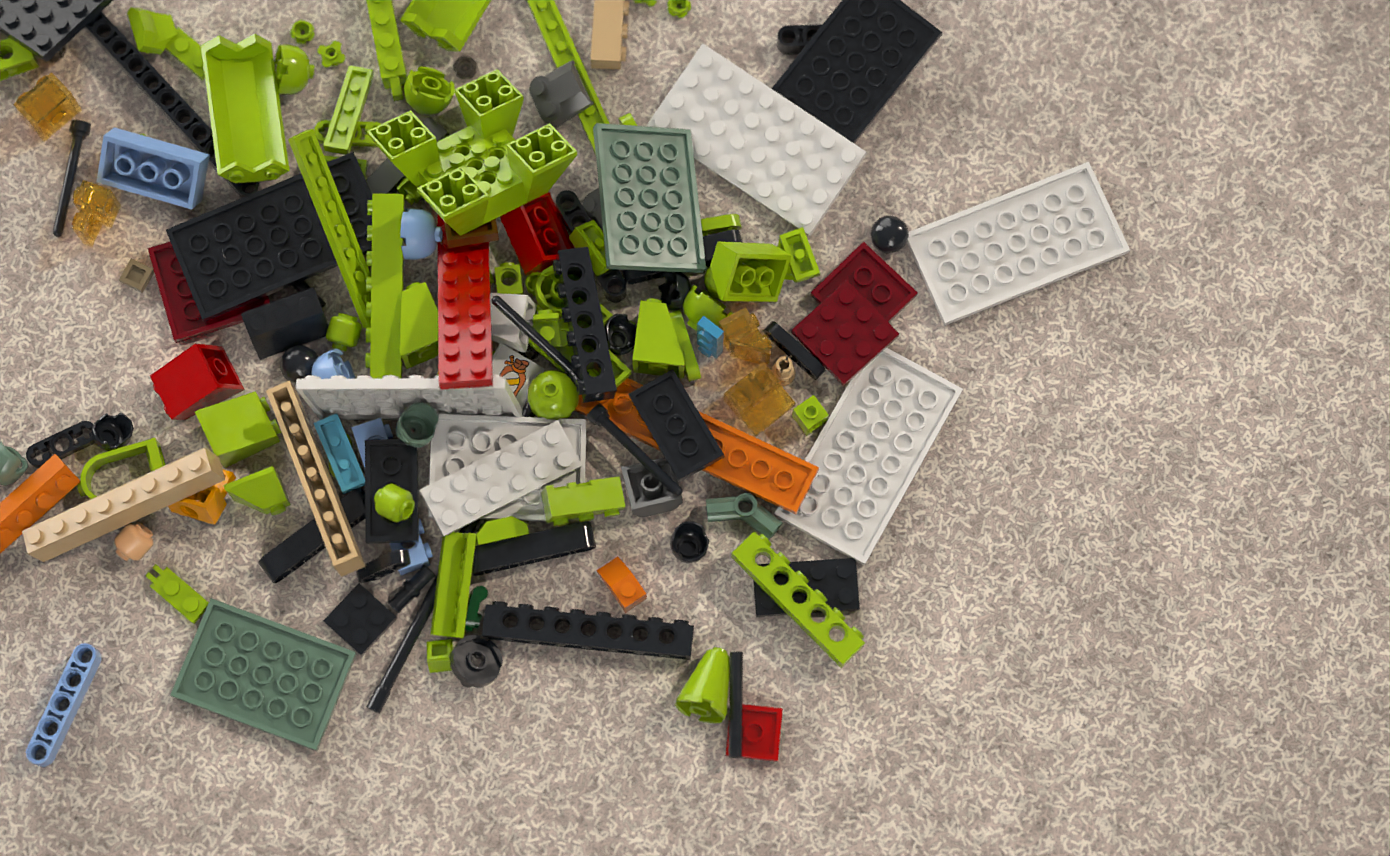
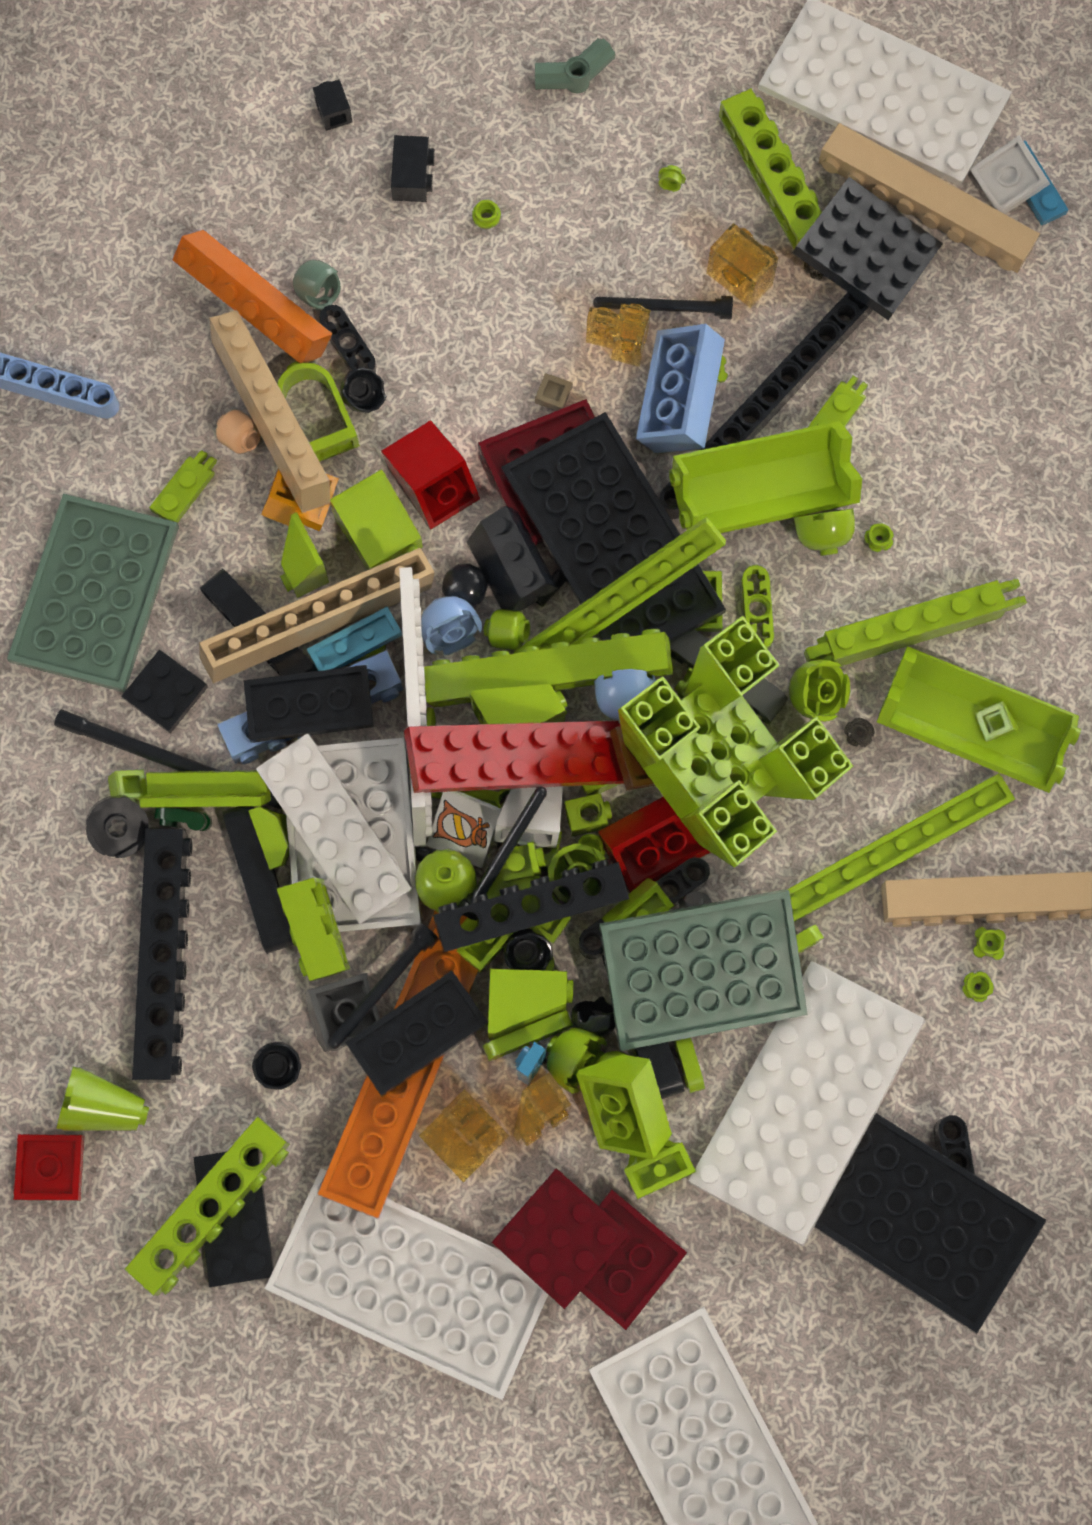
camera: 85 degrees right, 0 degrees up
(151, 29) = (856, 366): lime slope -> none
(337, 58) = (853, 582): lime plate -> none
(348, 110) = (782, 600): lime plate -> none
(383, 566) = (219, 706): black beam -> none
(394, 503) = (286, 705): lime head -> none
(411, 588) = (202, 744): black pin -> none
(420, 418) = (378, 730): sand green helmet -> none
(559, 95) = (835, 848): dark grey slope -> none
(622, 584) = (222, 988): orange slope -> none
(735, 704) = (76, 1141): black piece -> none
(758, 518) = (323, 1110): sand green piece -> none
(784, 371) = (506, 1164): tan pin -> none
(790, 346) = (534, 1175): black beam -> none
(810, 415) = (449, 1202): lime brick -> none
(889, 234) = (700, 1286): black hair -> none

